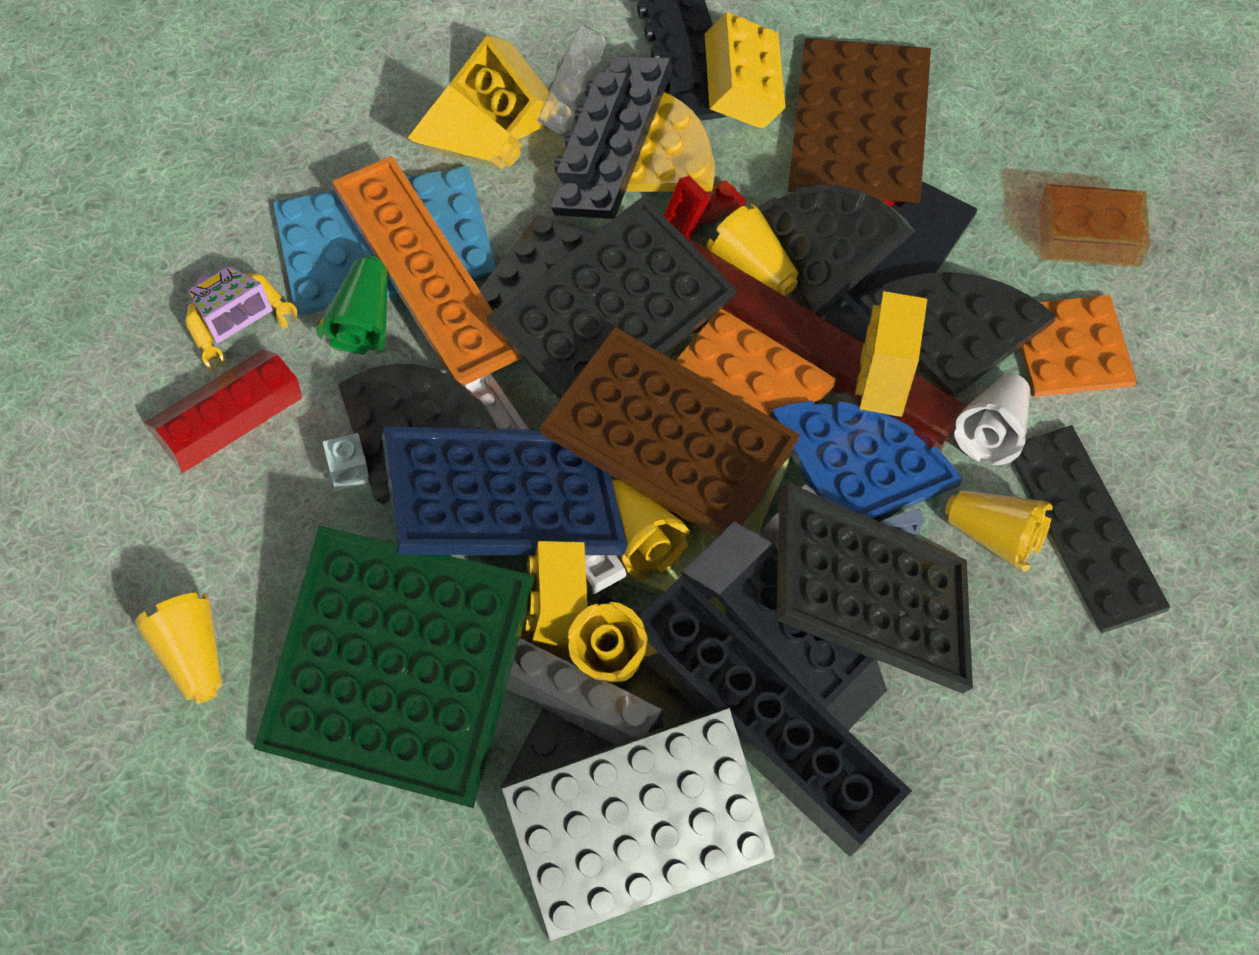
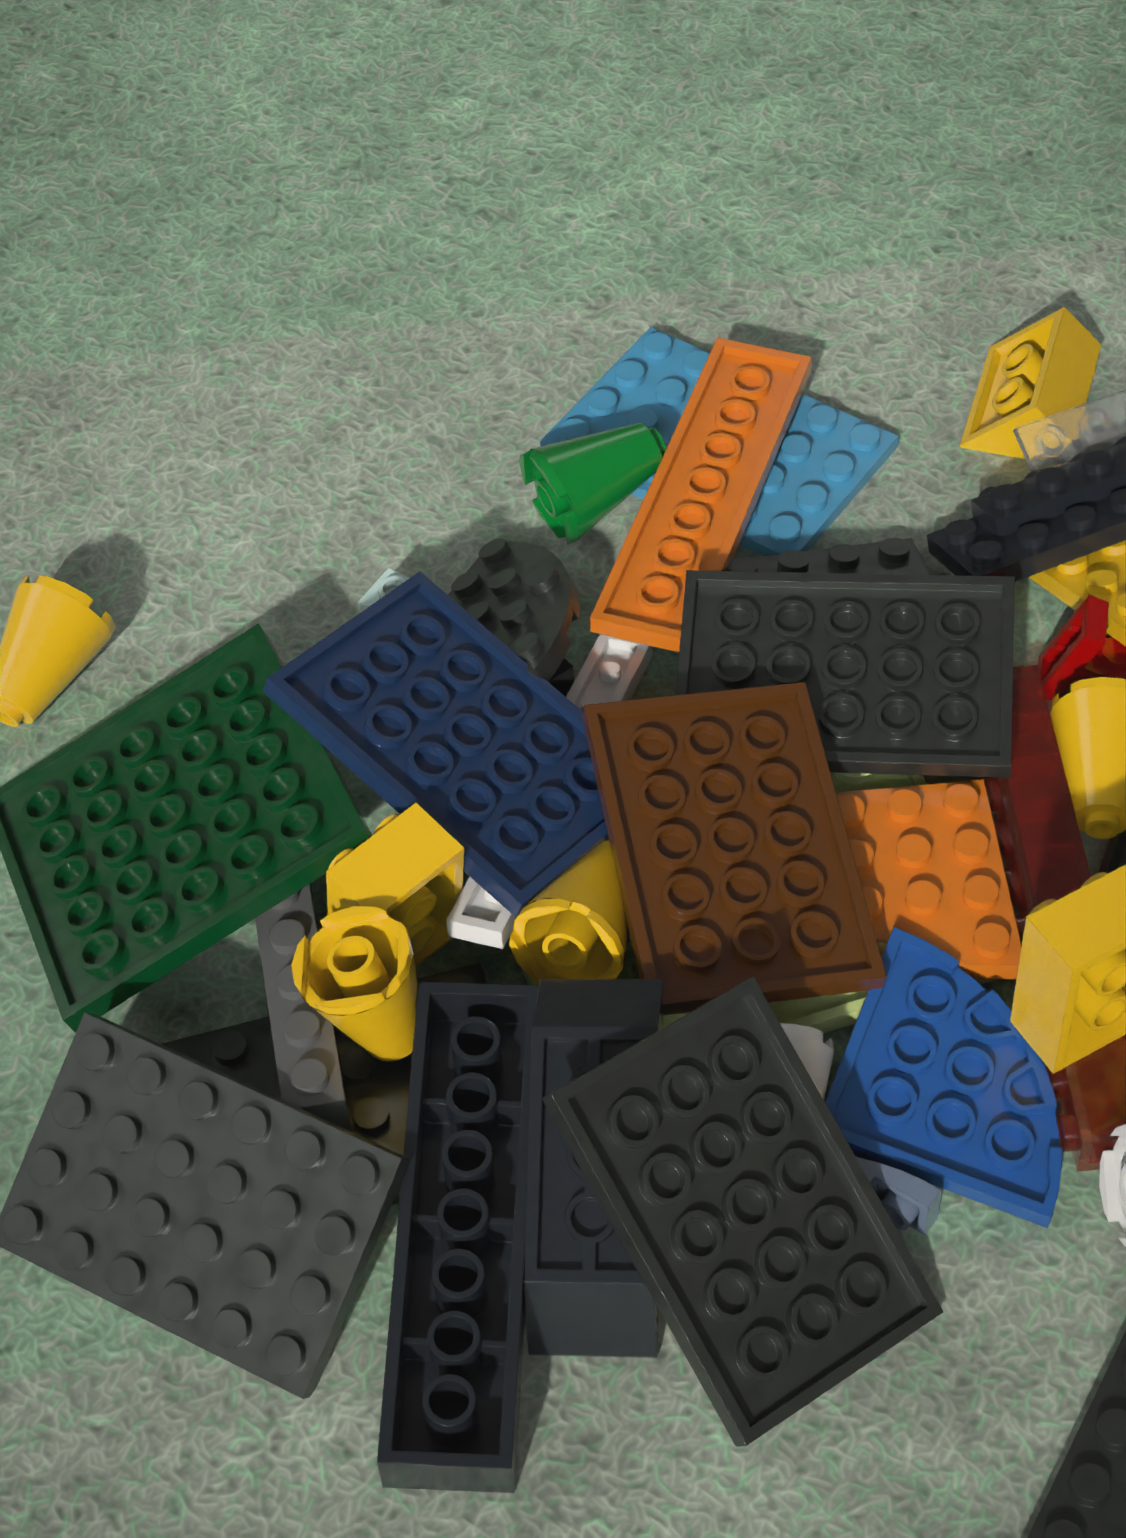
camera: 55 degrees right, 10 degrees down
(225, 409) = (354, 481): red slope -> none
(227, 305) = (474, 382): torso -> none
(465, 132) = (923, 386): yellow slope -> none
(1001, 523) = (1034, 1315): yellow cone -> none

